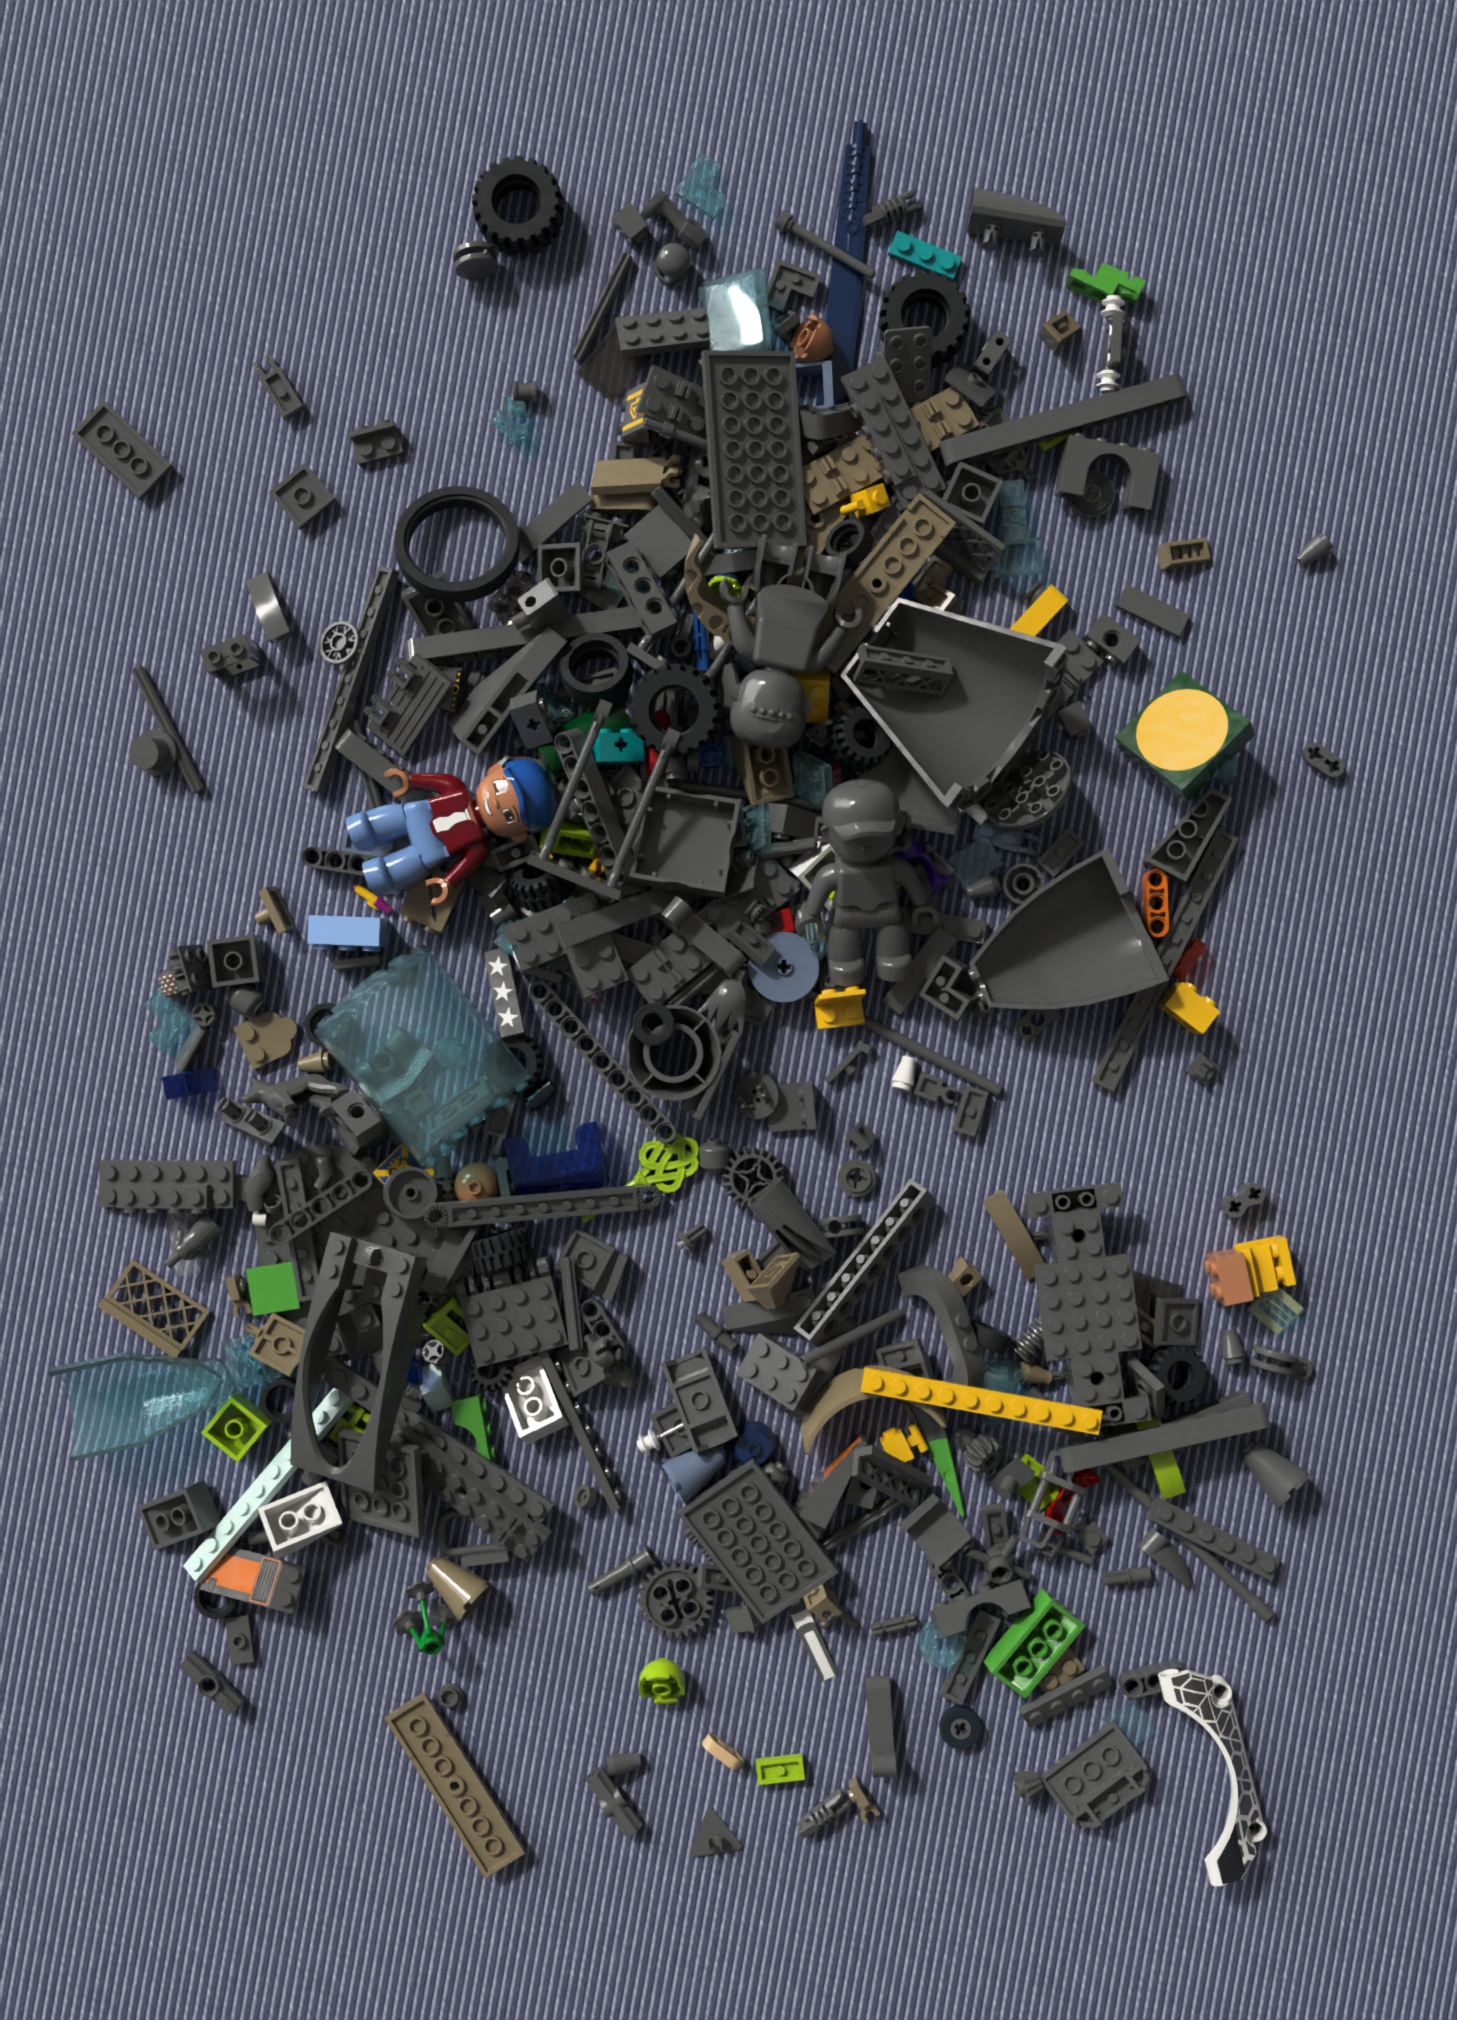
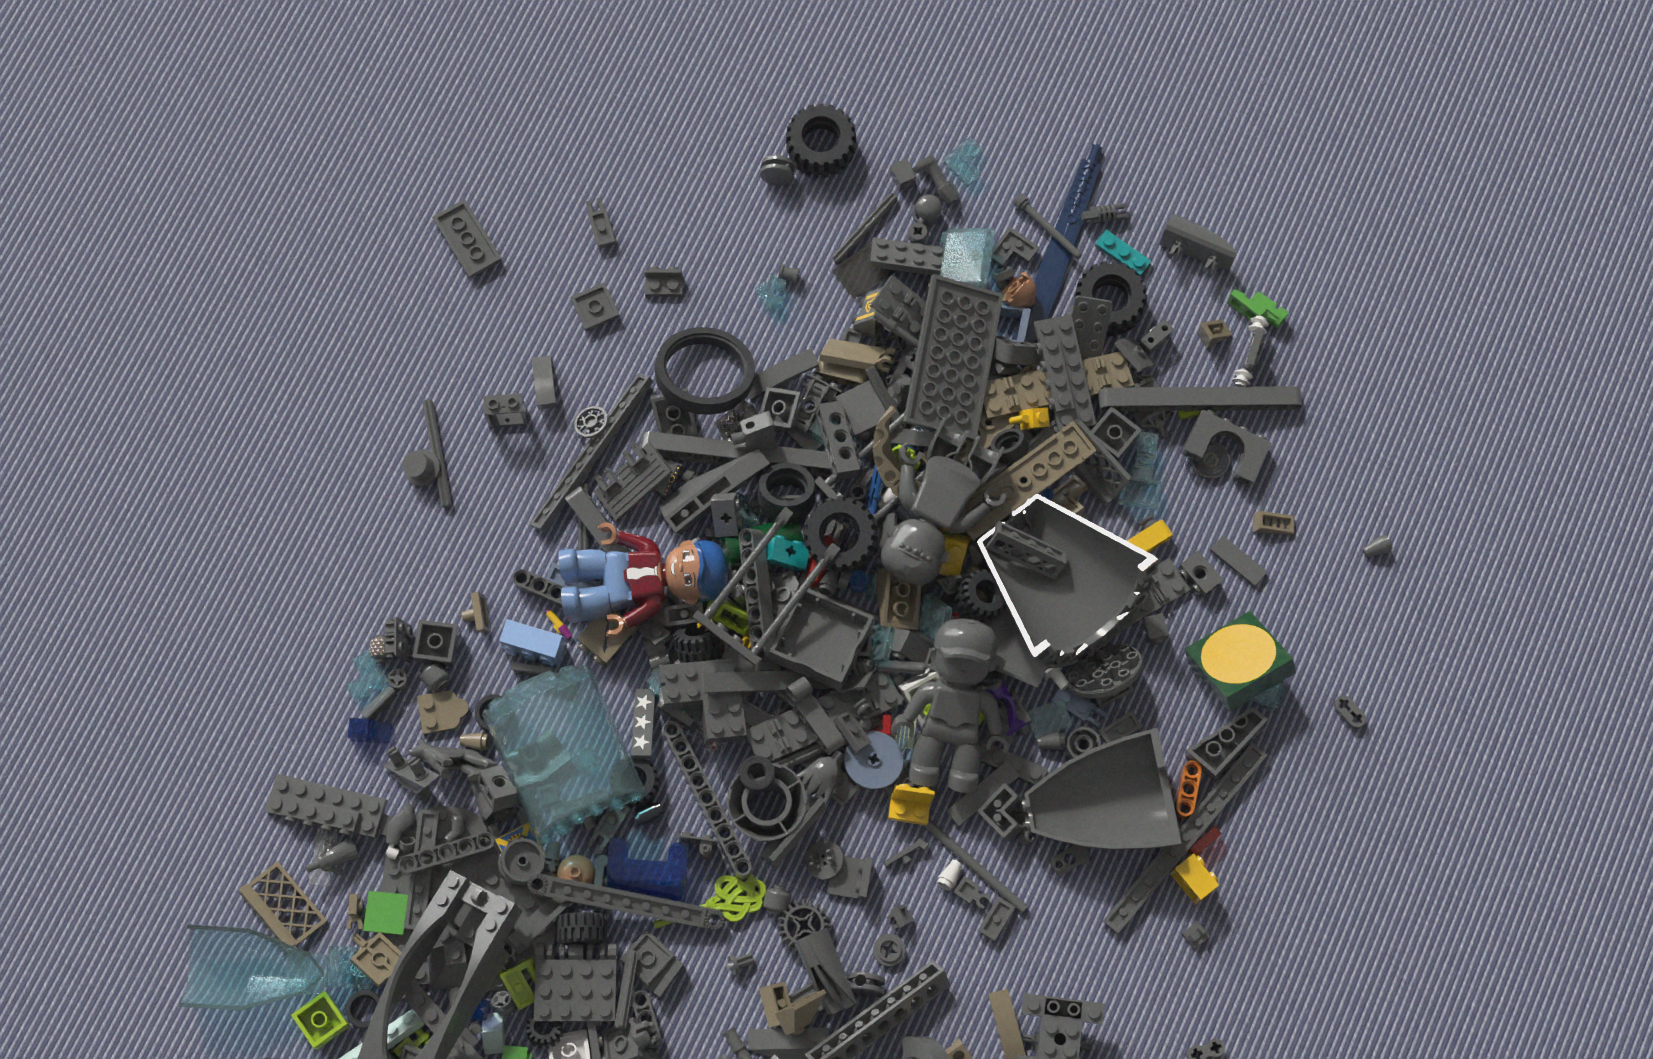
camera: 15 degrees right, 15 degrees down
(616, 1116) = (706, 843): none -> dark grey hinge
(668, 302) = (917, 237): none -> dark grey wheel

